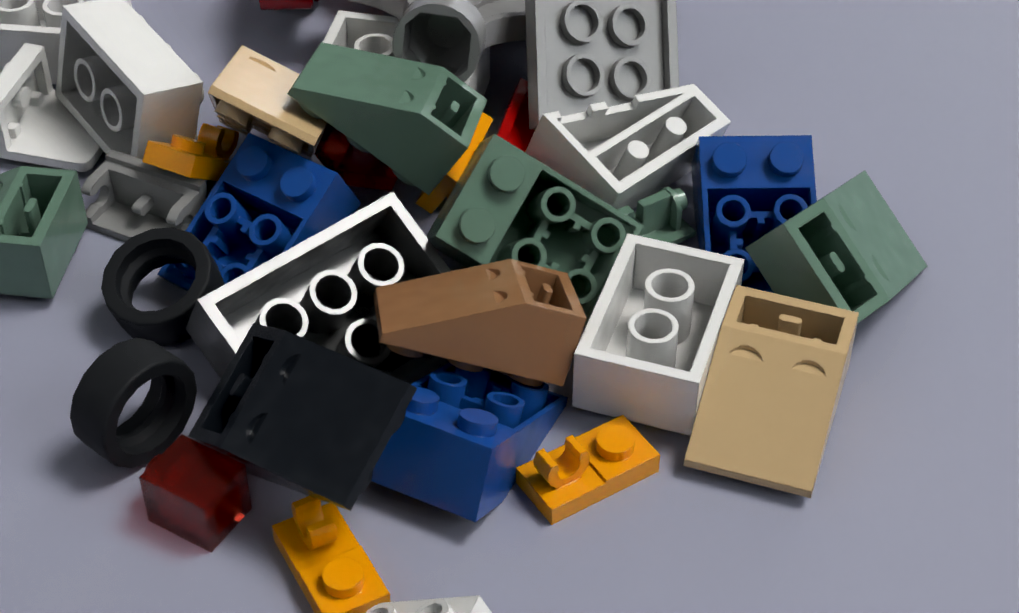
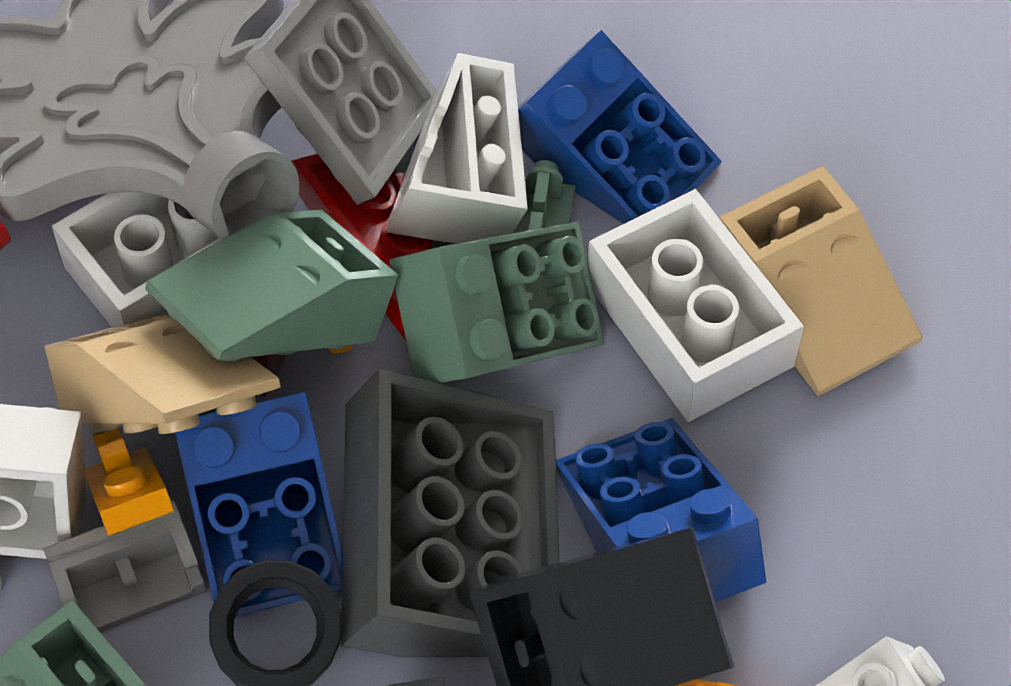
camera: 50 degrees left, 15 degrees up
(487, 317) = (581, 413): medium nougat slope -> none
(587, 469) = (766, 458): light orange plate -> none
(840, 251) = (728, 125): sand green slope -> none

